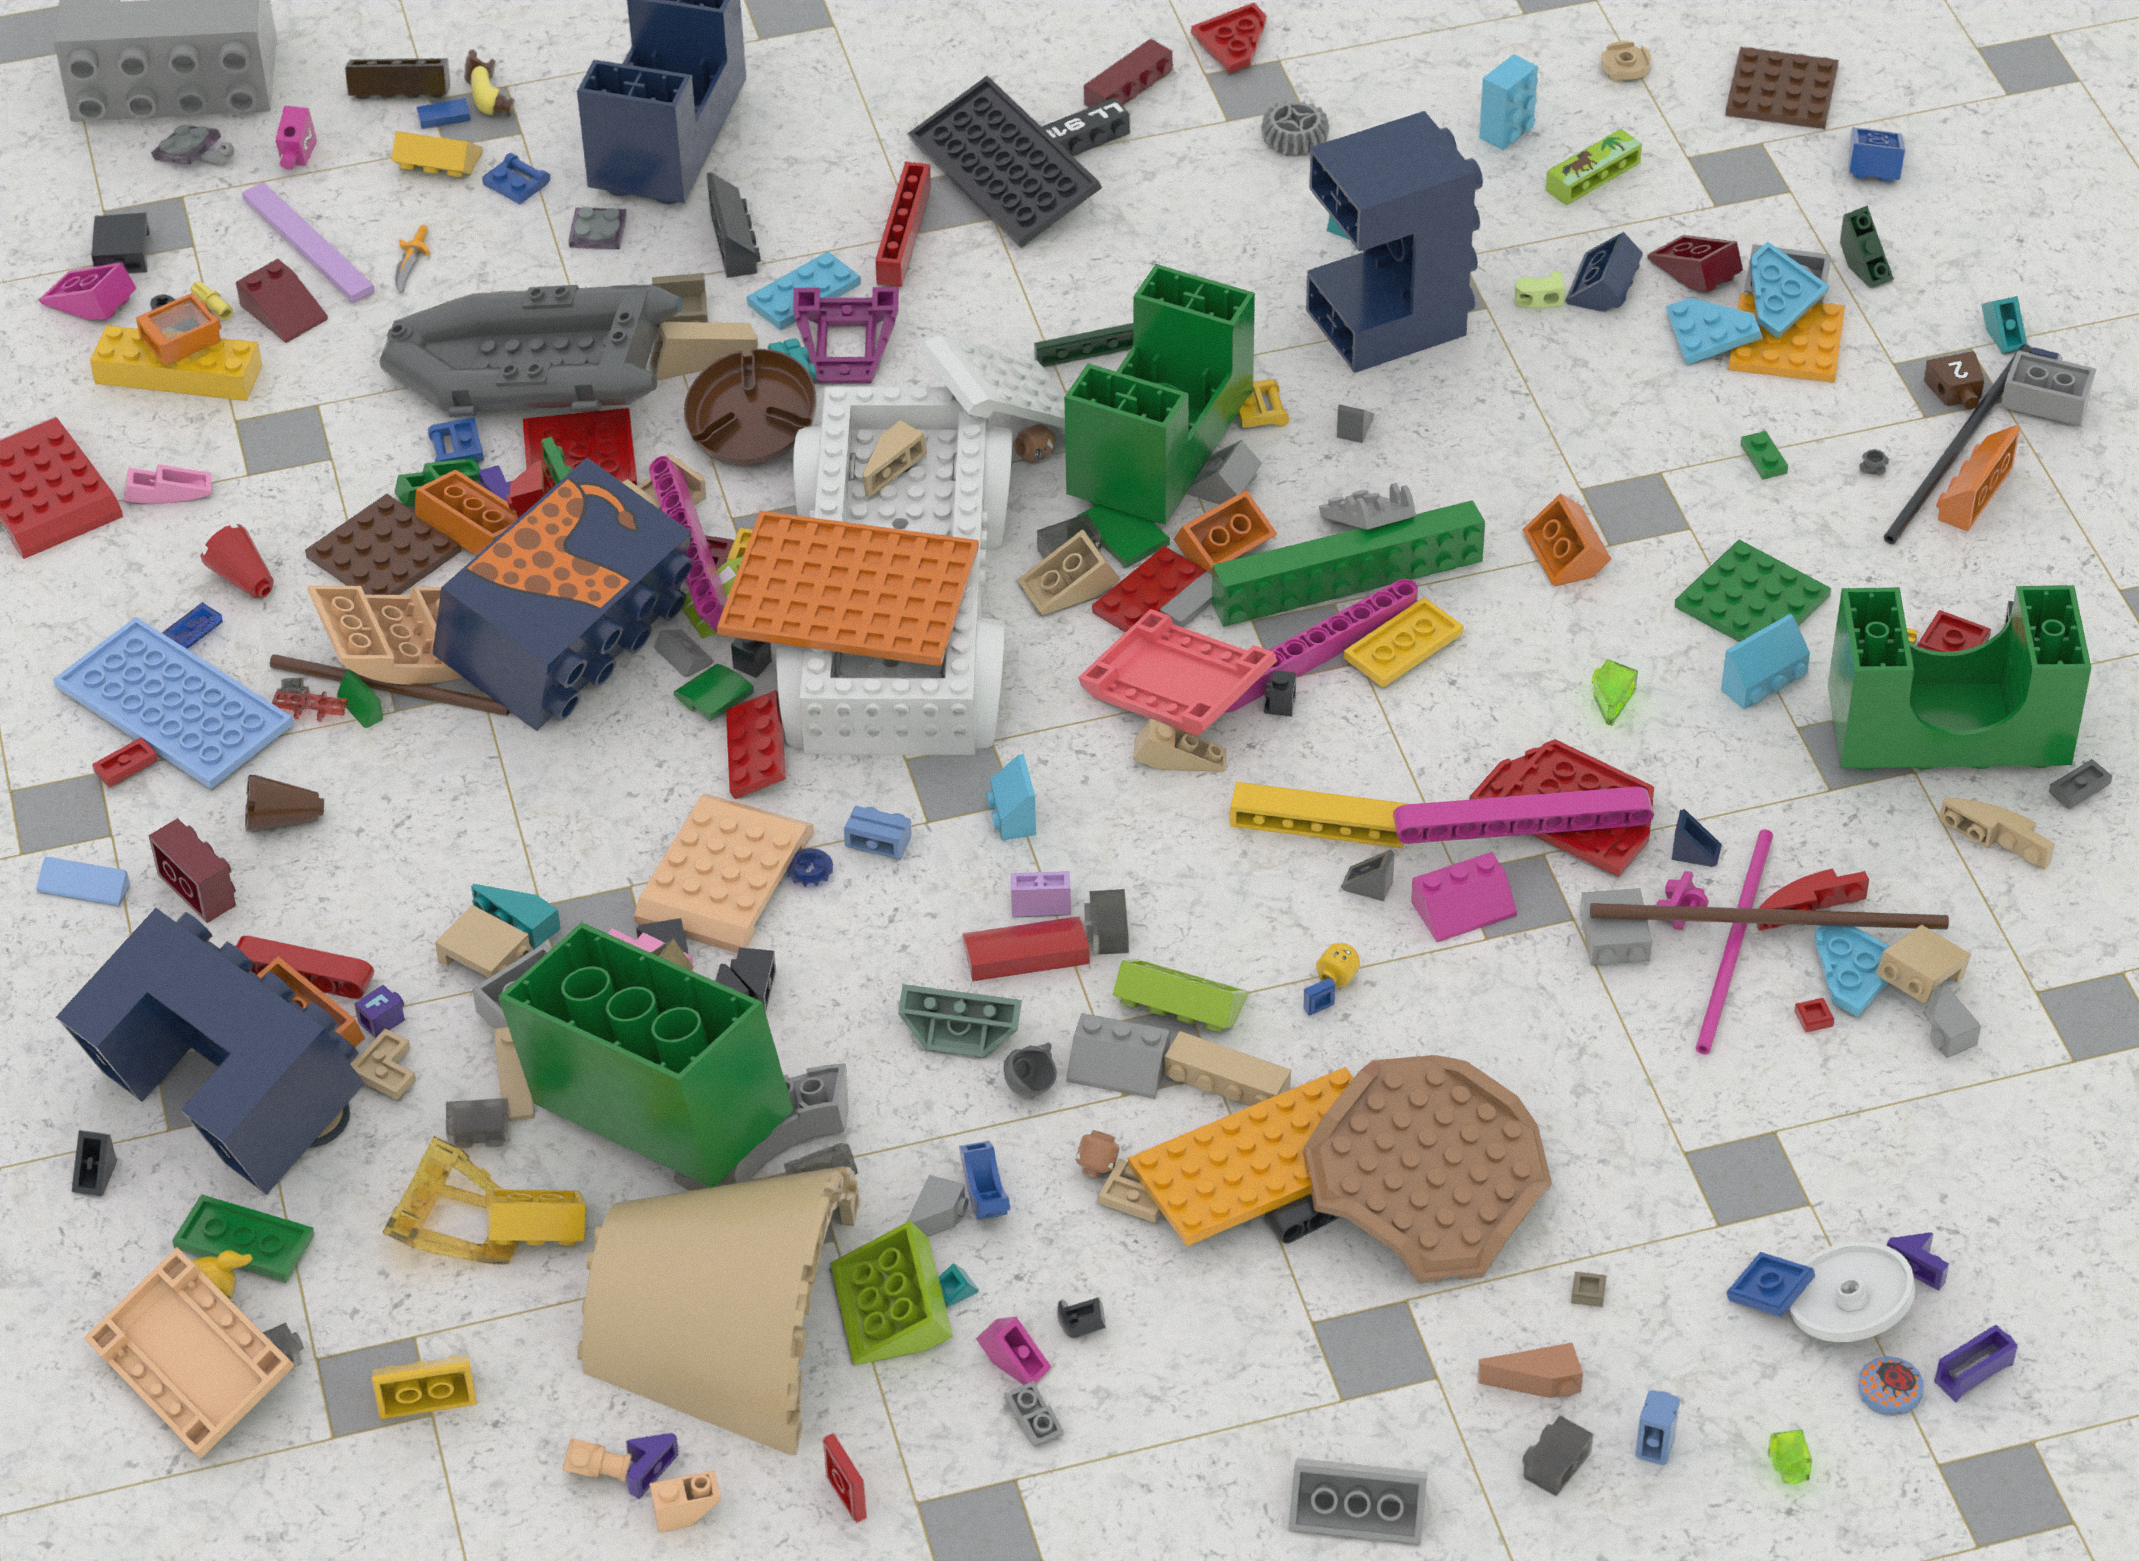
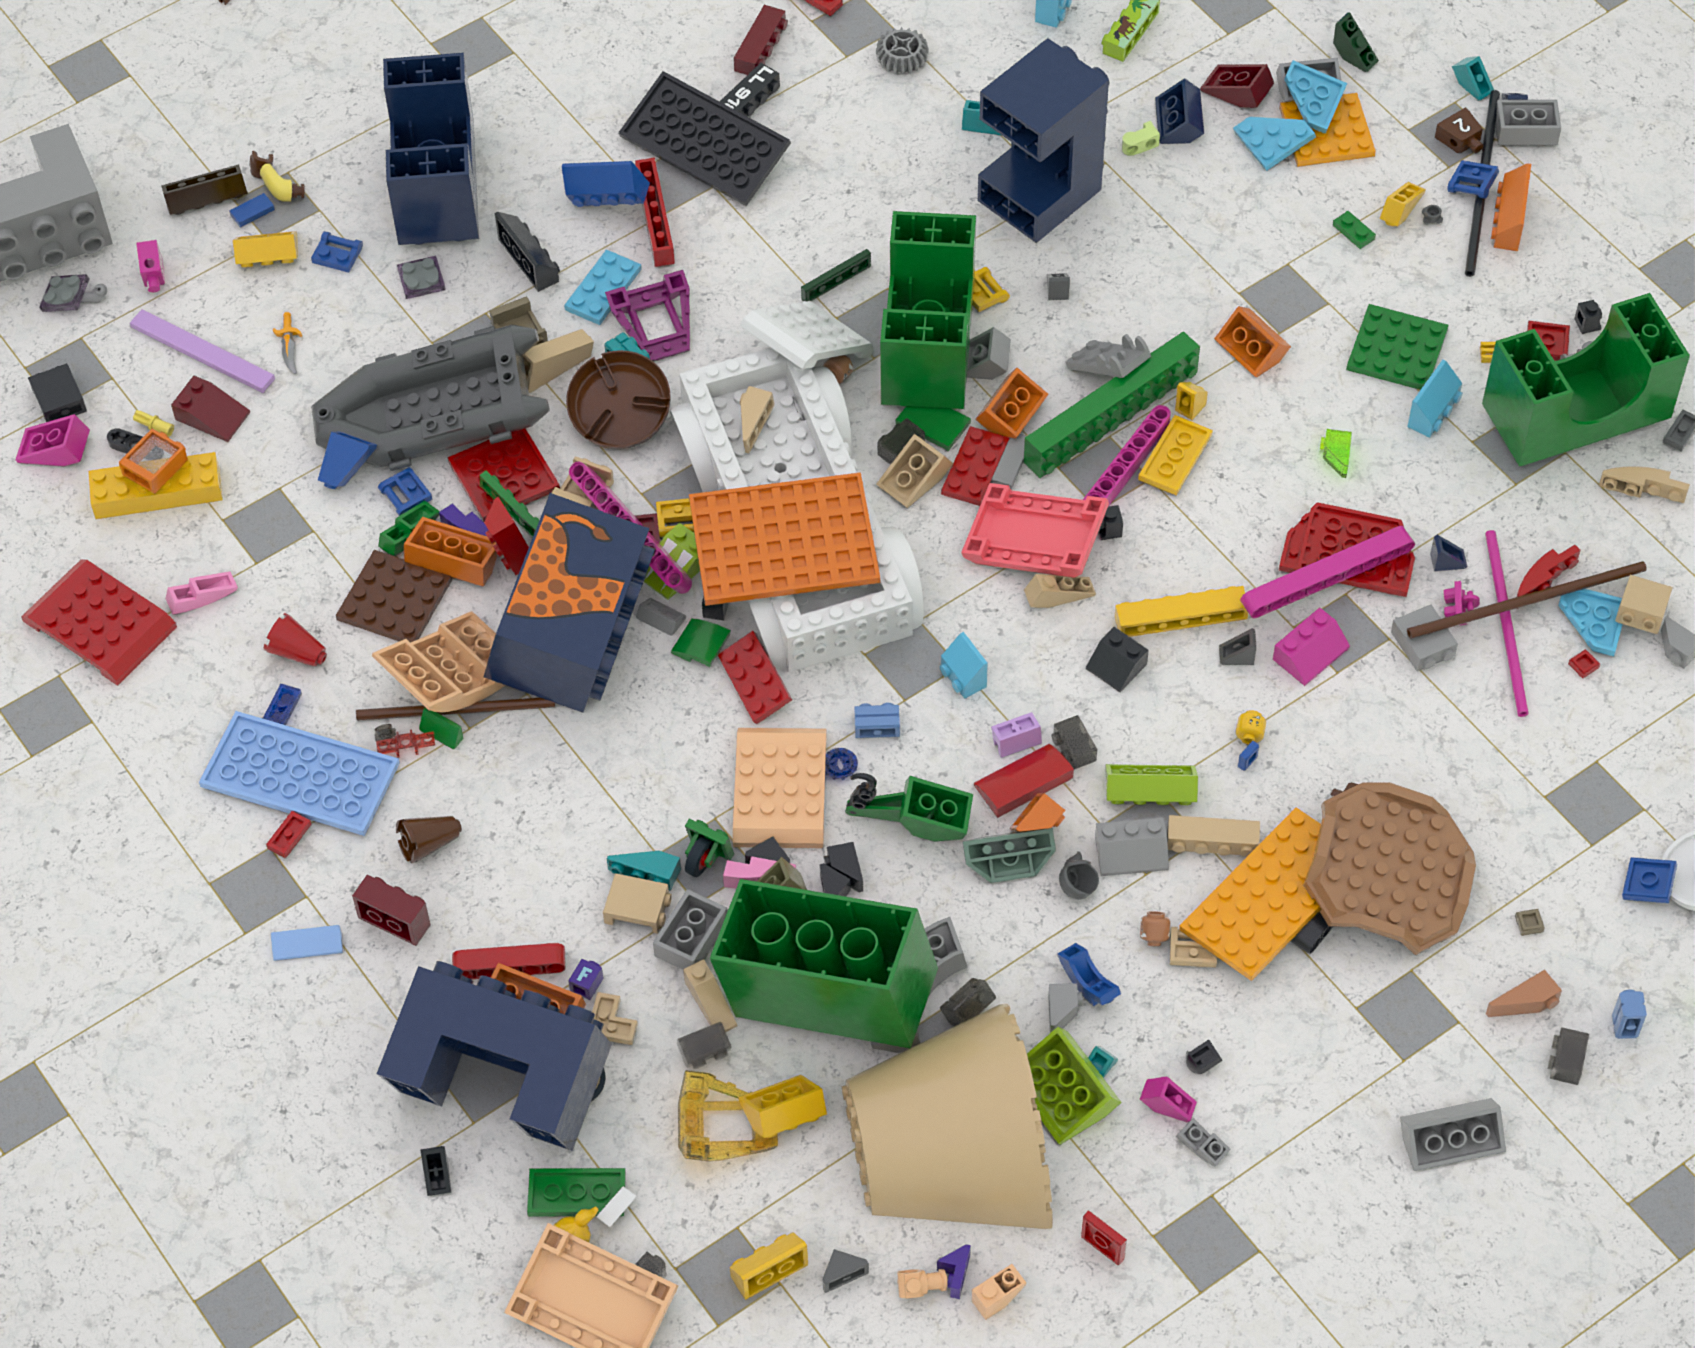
camera: 20 degrees left, 10 degrees up
(279, 1265) = (616, 1206): none -> white sticker
(398, 386) = (343, 458): none -> blue slope
(509, 1419) = (843, 1269): none -> dark grey slope
(594, 905) = (705, 847): none -> green plate
(854, 175) = (604, 183): none -> blue slope
(875, 936) = (923, 808): none -> green slope
(1010, 978) = (1039, 814): none -> orange slope
(1211, 845) = (1117, 659): none -> black slope
(1452, 584) = (1190, 399): none -> yellow slope
(1836, 439) = (1401, 203): none -> yellow slope
(1947, 426) = (1476, 174): none -> blue plate

